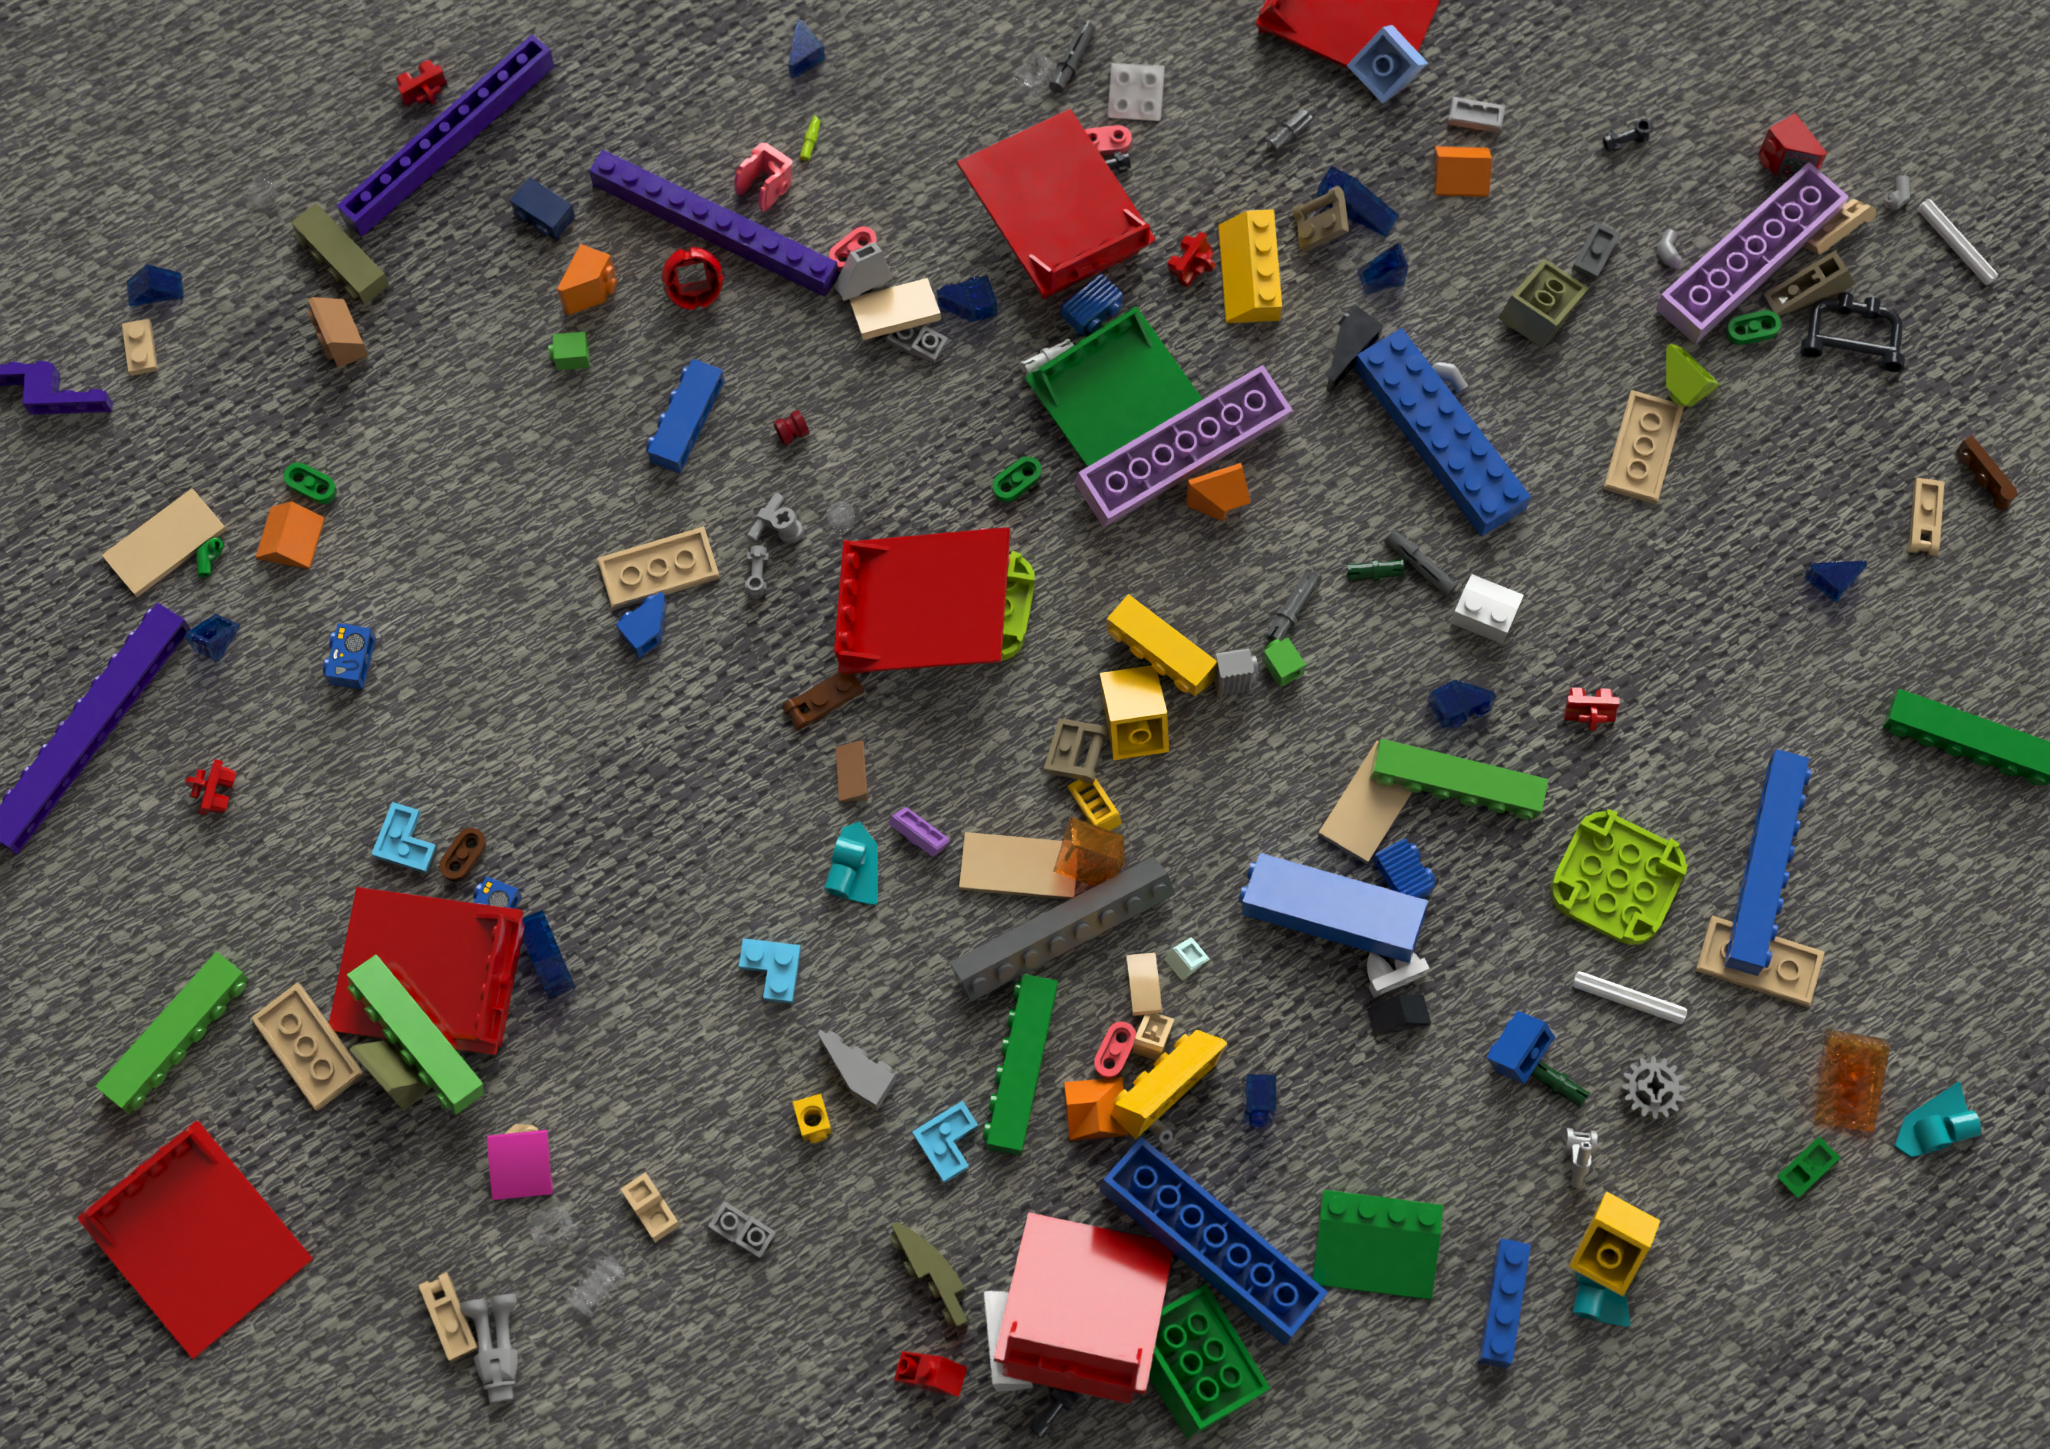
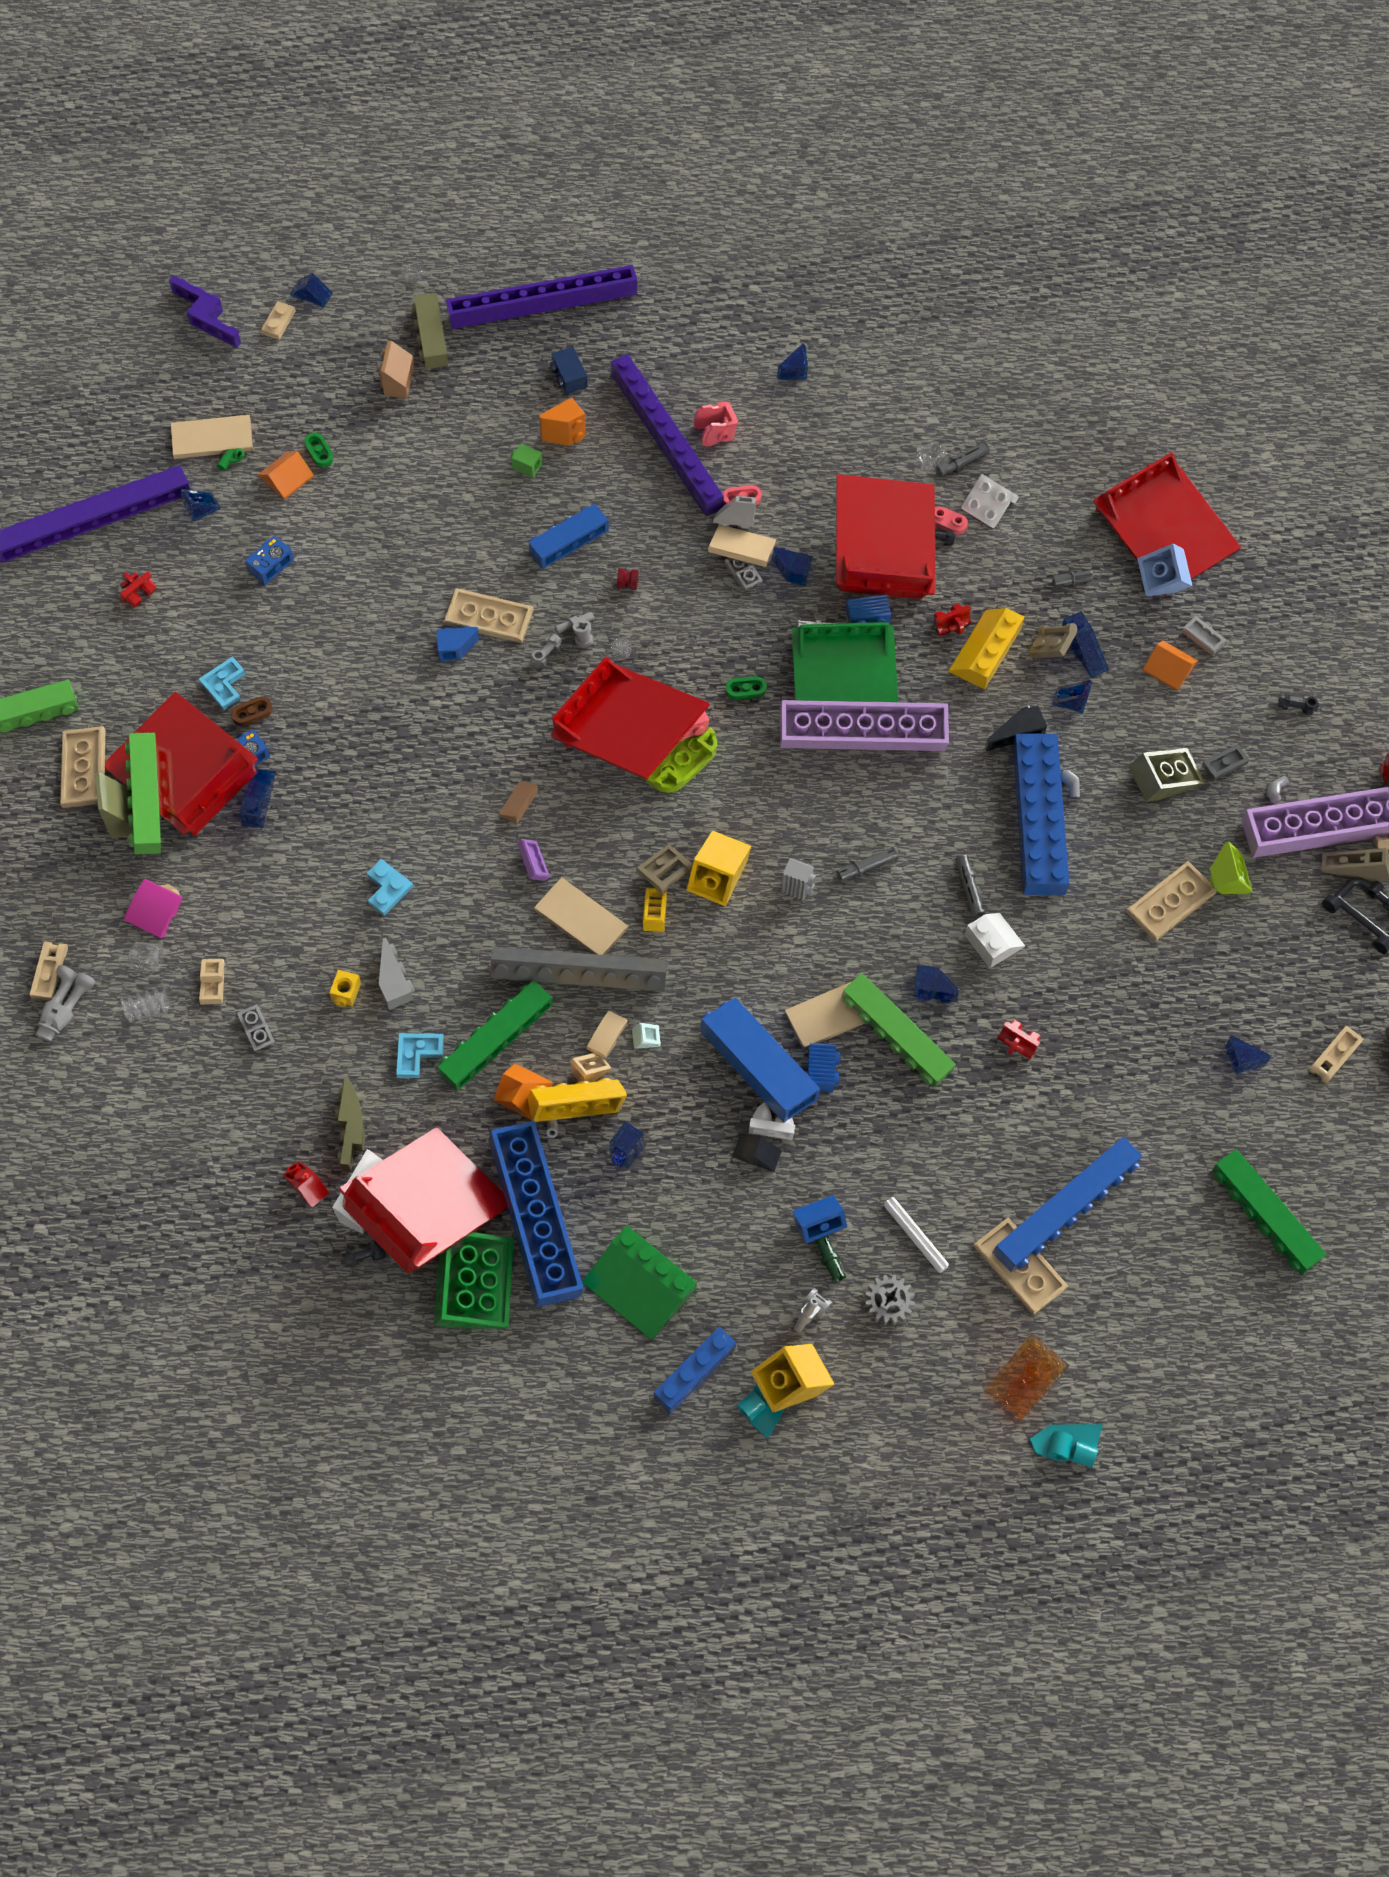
camera: 30 degrees right, 5 degrees down
(422, 87) = (549, 262): red hips -> none
(693, 293) = (622, 468): red piece -> none
(810, 139) = (762, 420): lime piece -> none
(822, 699) = (532, 748): reddish brown plate -> none
(854, 866) = (479, 856): teal panel -> none
(1089, 853) = (628, 933): clear orange slope -> none
(1115, 1051) = (558, 1062): coral plate -> none
(1162, 646) = (761, 836): yellow slope -> none
(1218, 492) = (866, 765): orange slope -> none
(1283, 661) = (835, 893): bright green brick -> none
(1375, 570) = (936, 873): dark green pin -> none
(1618, 878) = (962, 1156): lime tile -> none
(1750, 325) = (1299, 868): green plate -> none
(1808, 1167) = (960, 1415): green slope -> none

